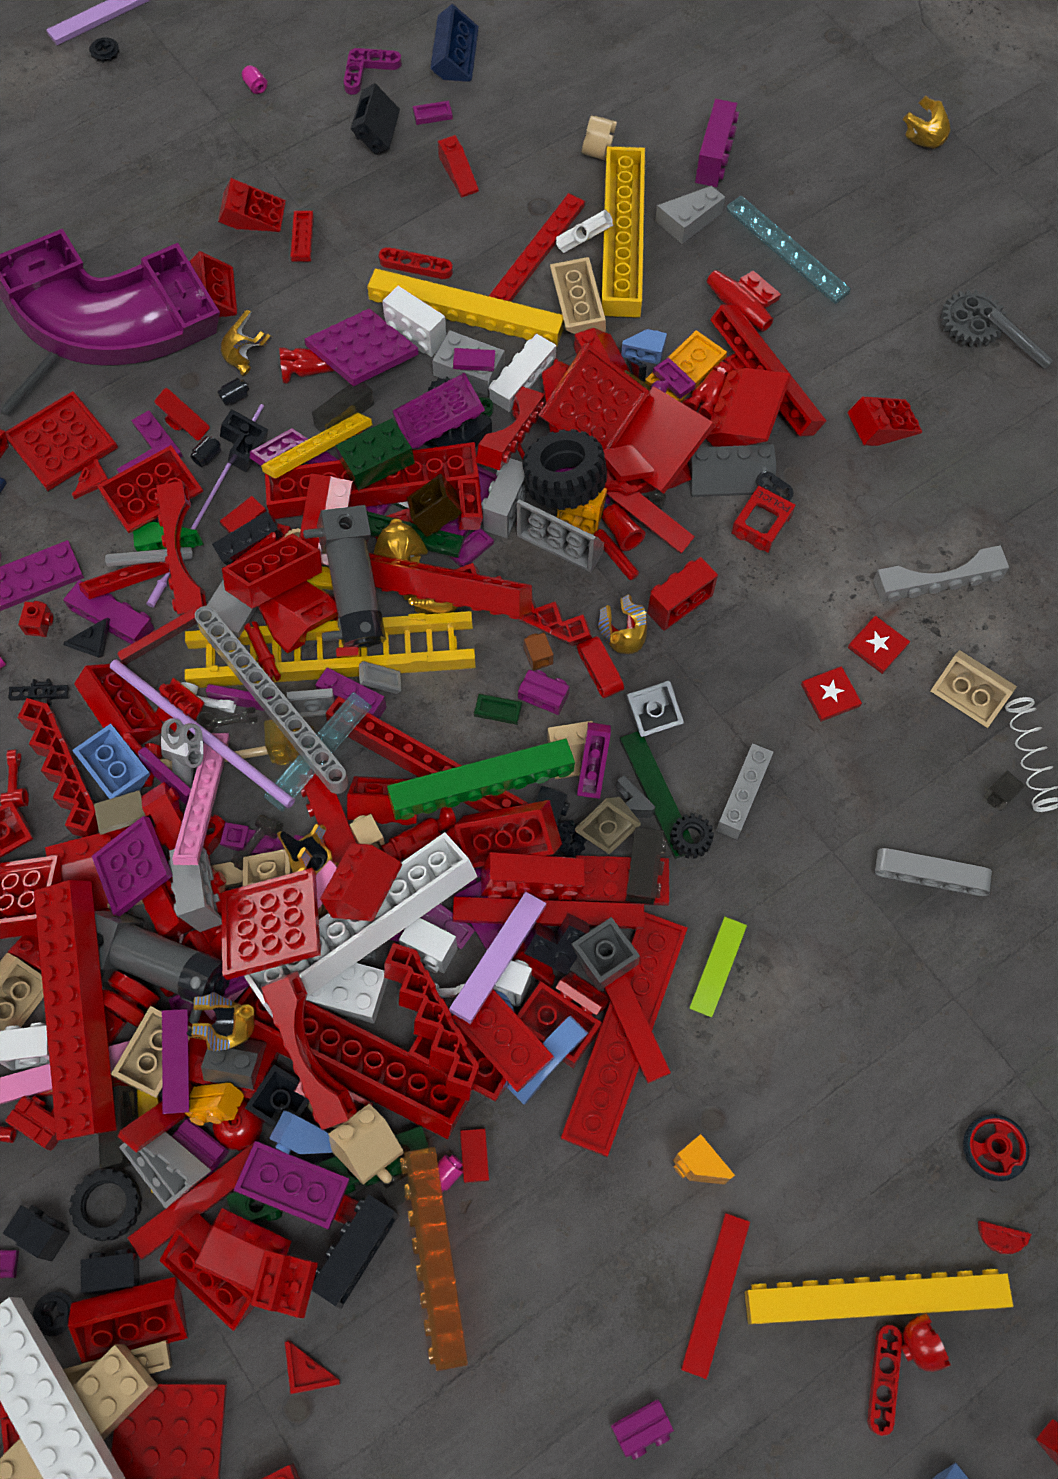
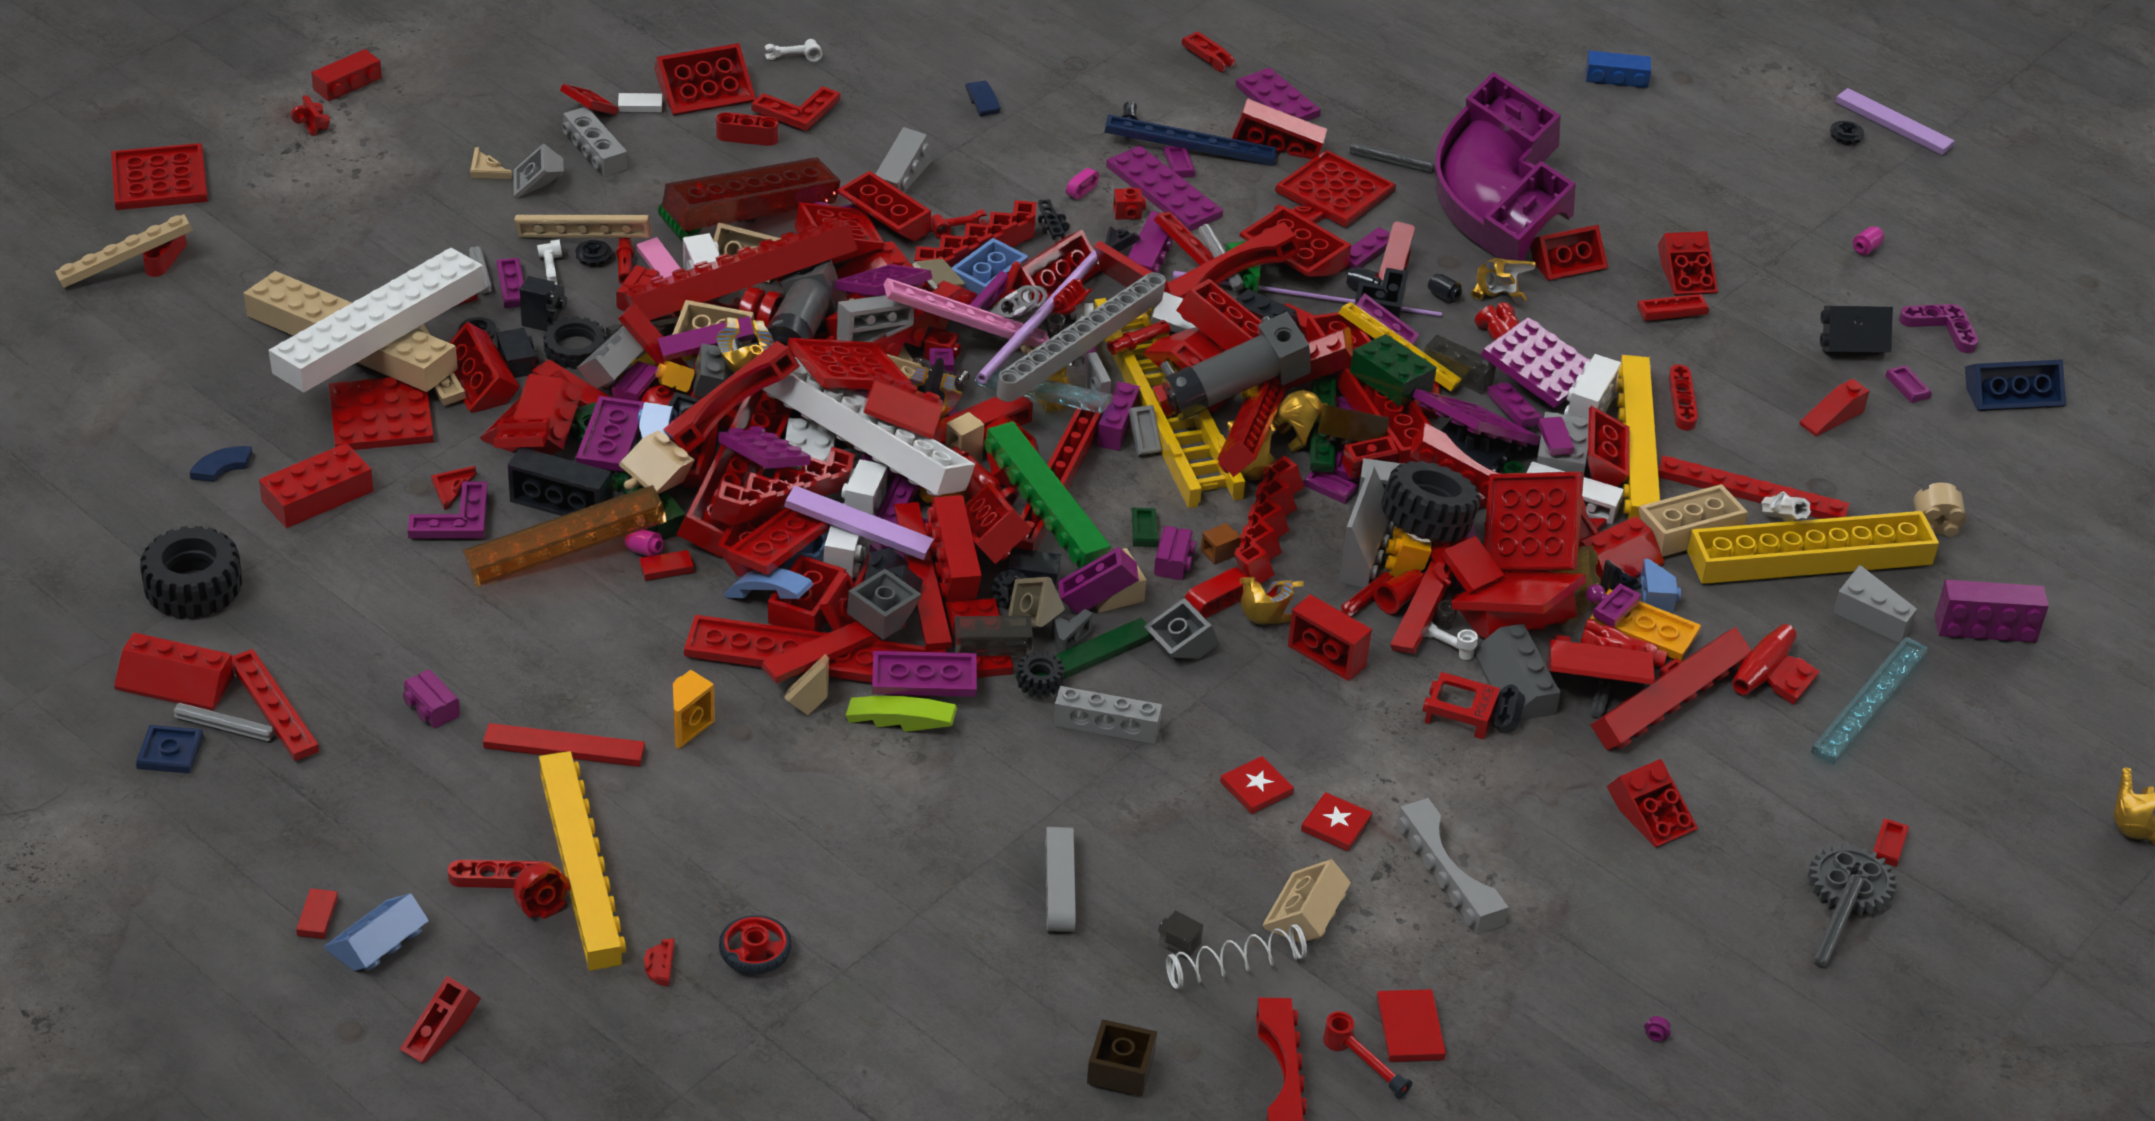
camera: 75 degrees right, 25 degrees down
(379, 1362) = (467, 524): none -> magenta plate
(380, 1029) = (764, 447): none -> magenta plate
(403, 382) = (1514, 405): none -> magenta plate
(489, 329) = (1607, 448): none -> red slope
(681, 1043) = (811, 687): none -> tan slope
(683, 936) = (924, 673): none -> magenta plate
(694, 498) = (1465, 640): none -> white brick
(931, 284) = (1890, 841): none -> red tile

